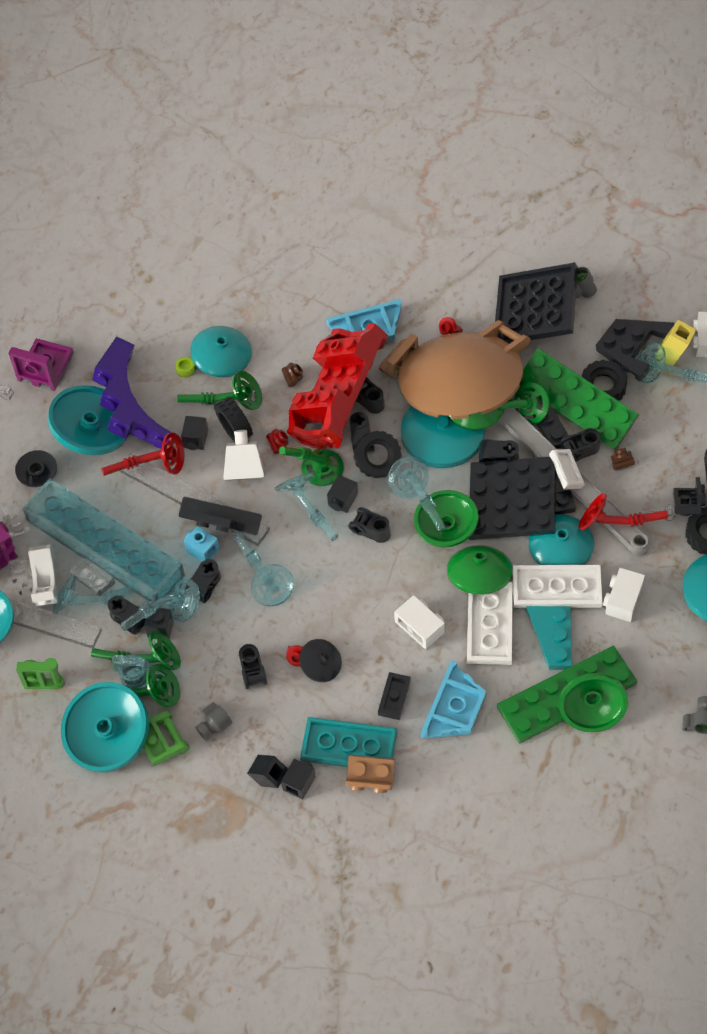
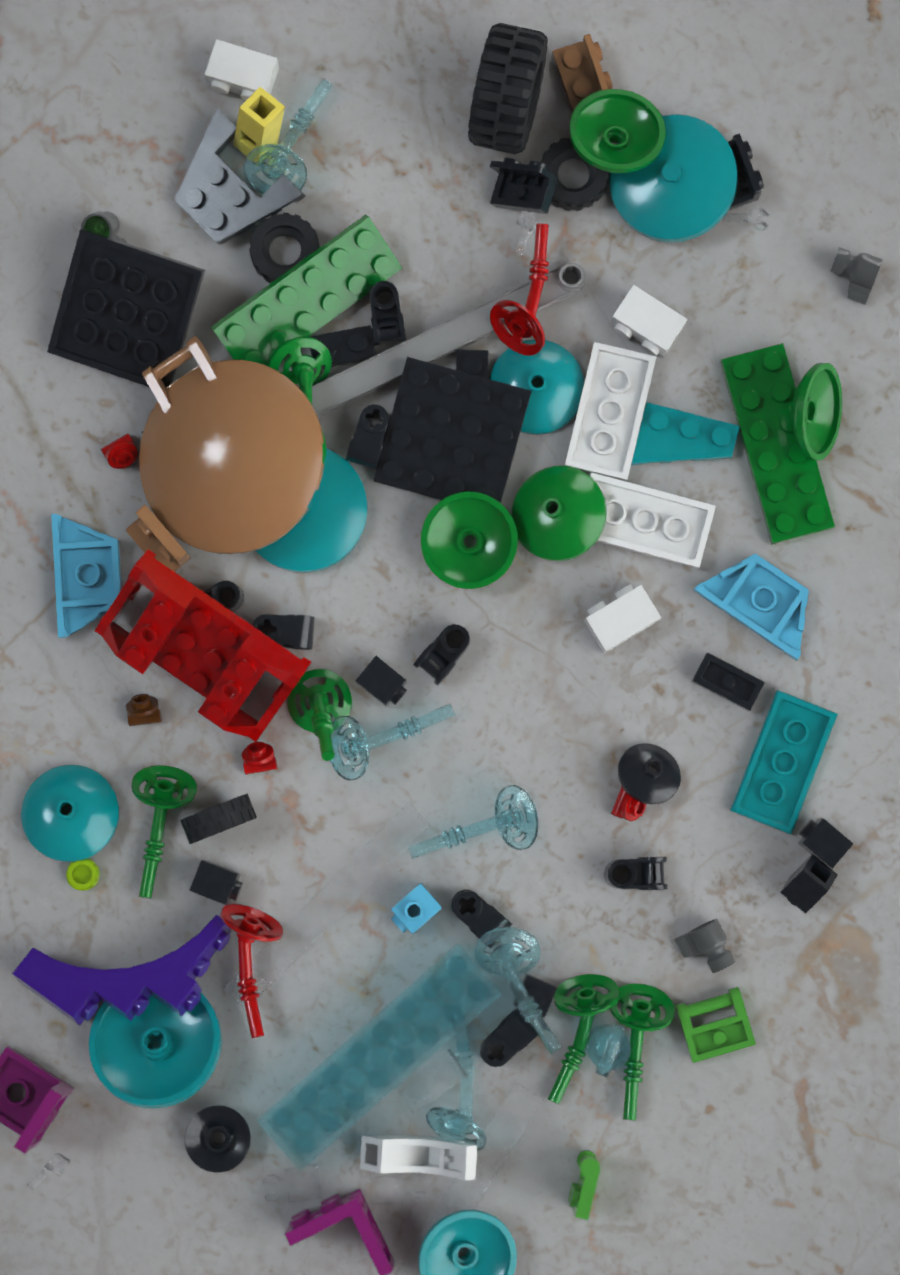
camera: 80 degrees left, 25 degrees up
(105, 727) = (688, 1102): teal dish -> none
(220, 516) = (382, 874): black bracket -> none
(243, 458) = (290, 818): white torso -> none
(361, 449) = (308, 614): black tyre -> none
(370, 773) = (842, 742): medium nougat bracket -> none
(412, 482) = (397, 573): clear light blue dish -> none
(567, 469) = (431, 344): white tile -> none
(622, 459) = (421, 261): reddish brown plate -> none

